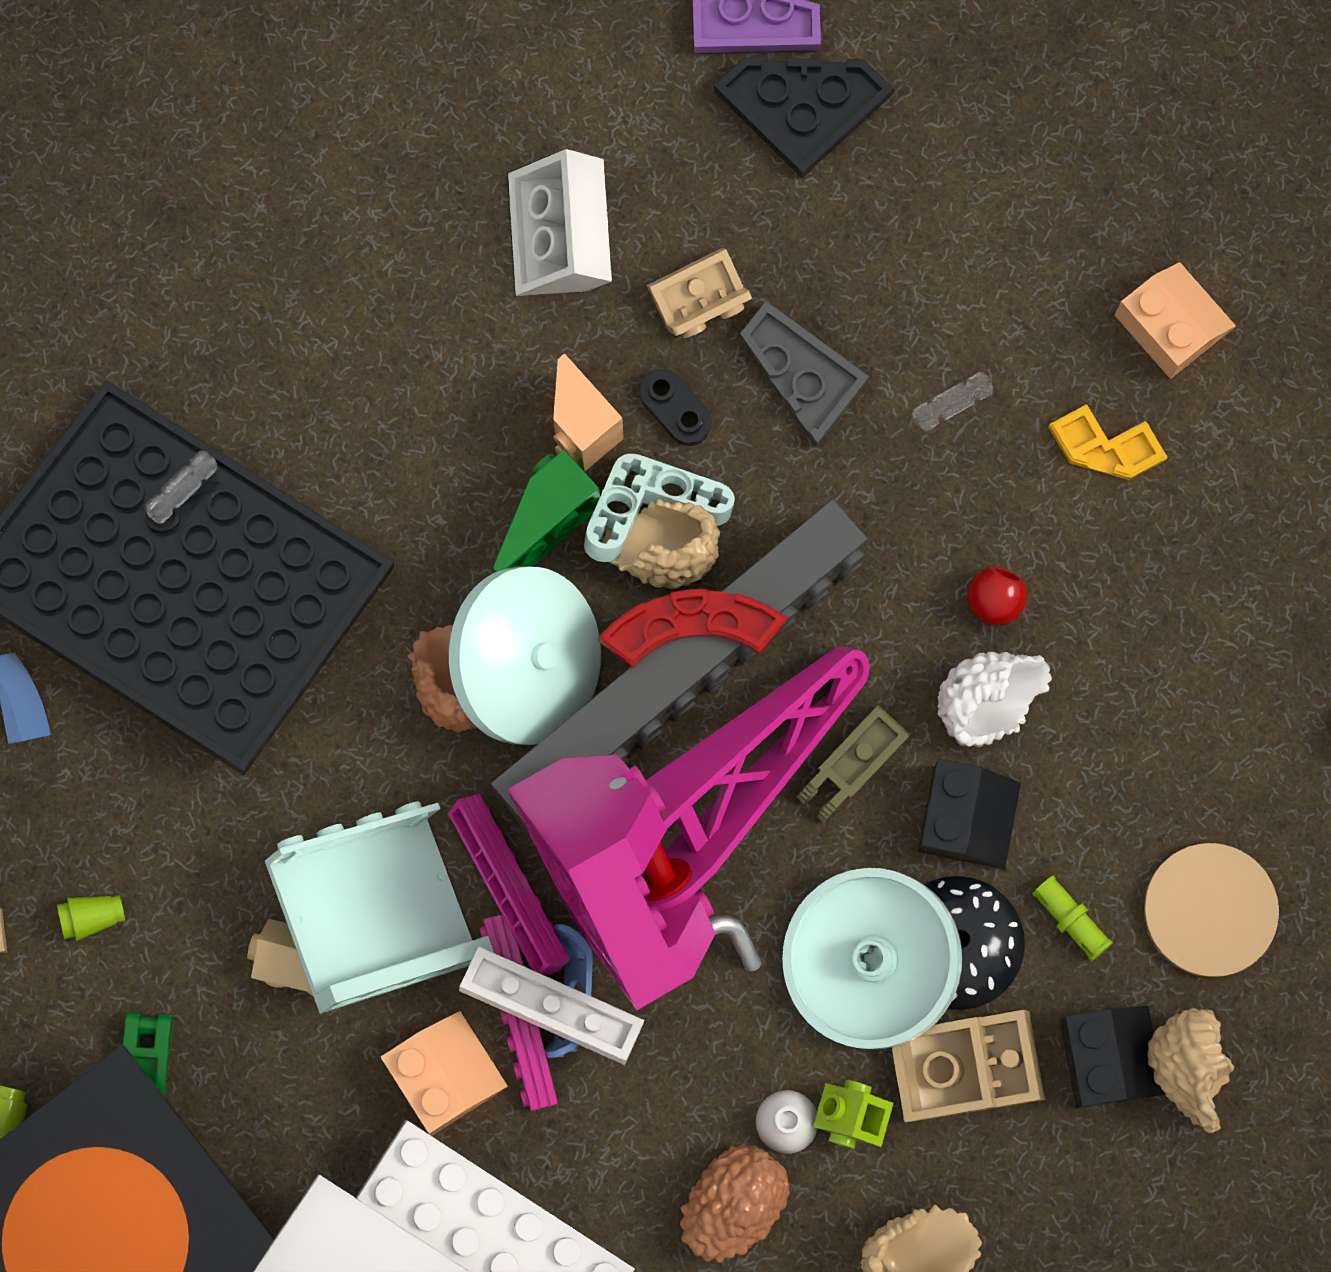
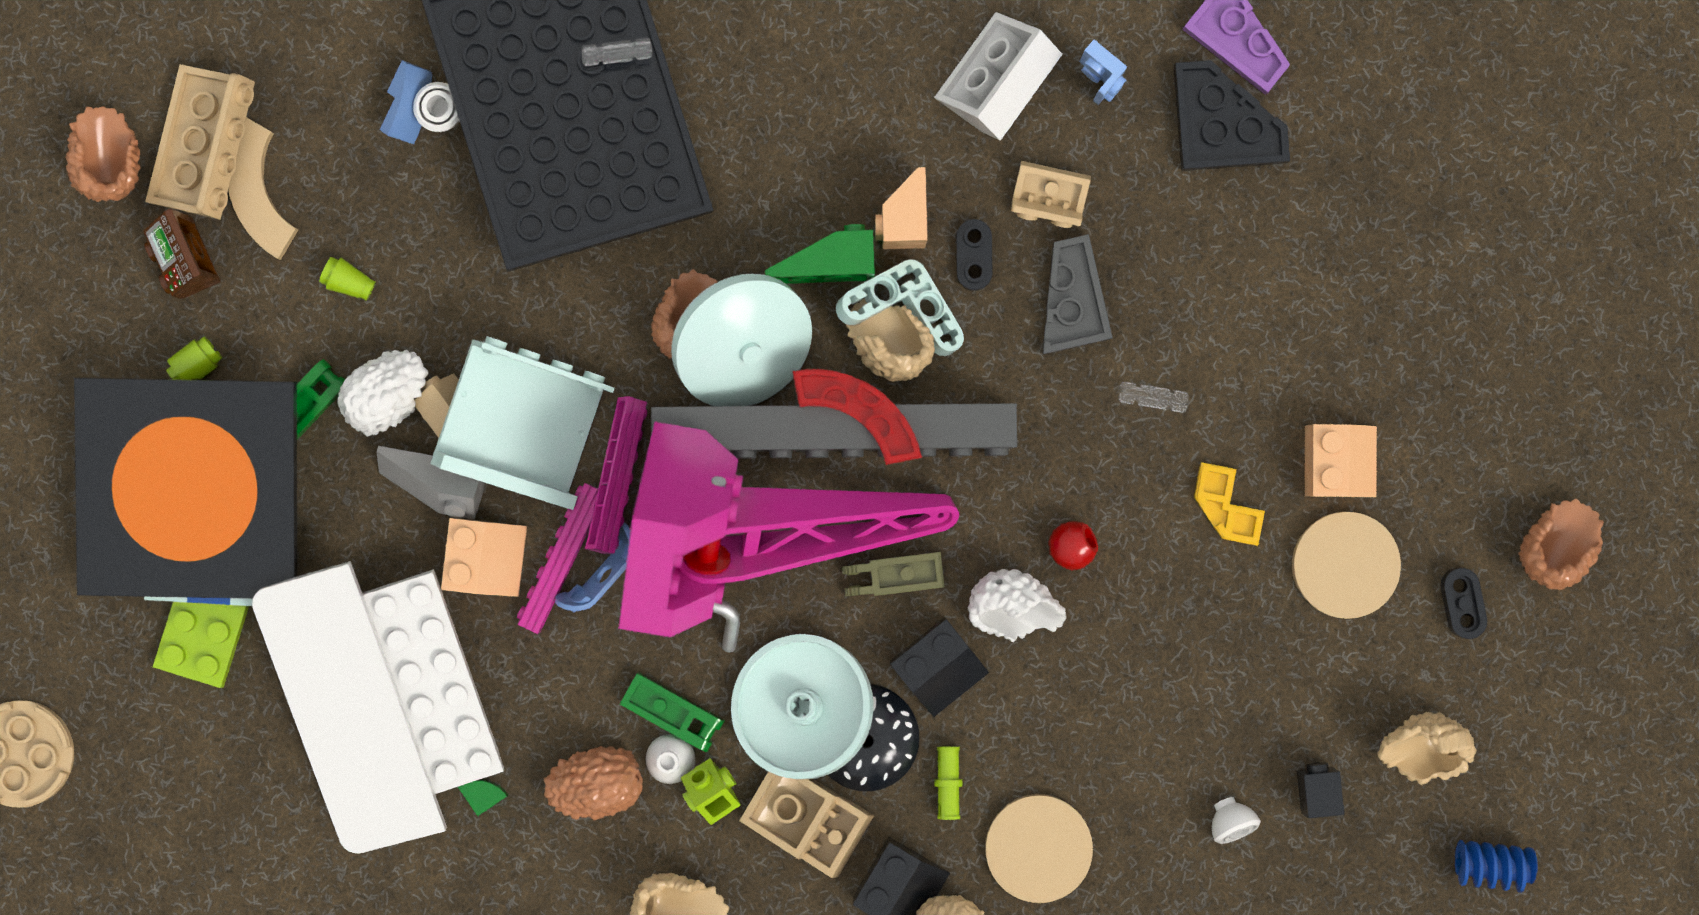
camera: 40 degrees right, 10 degrees up
(47, 678) = (435, 107): none -> white brick
(214, 991) = (382, 391): none -> white piece
(331, 1040) = (437, 488): none -> light grey slope
(551, 1005) = (578, 573): white plate -> none
(653, 137) = (1104, 66): none -> light blue bracket
(749, 1072) = (670, 711): none -> green plate
(1263, 409) = (1346, 565): none -> tan tile

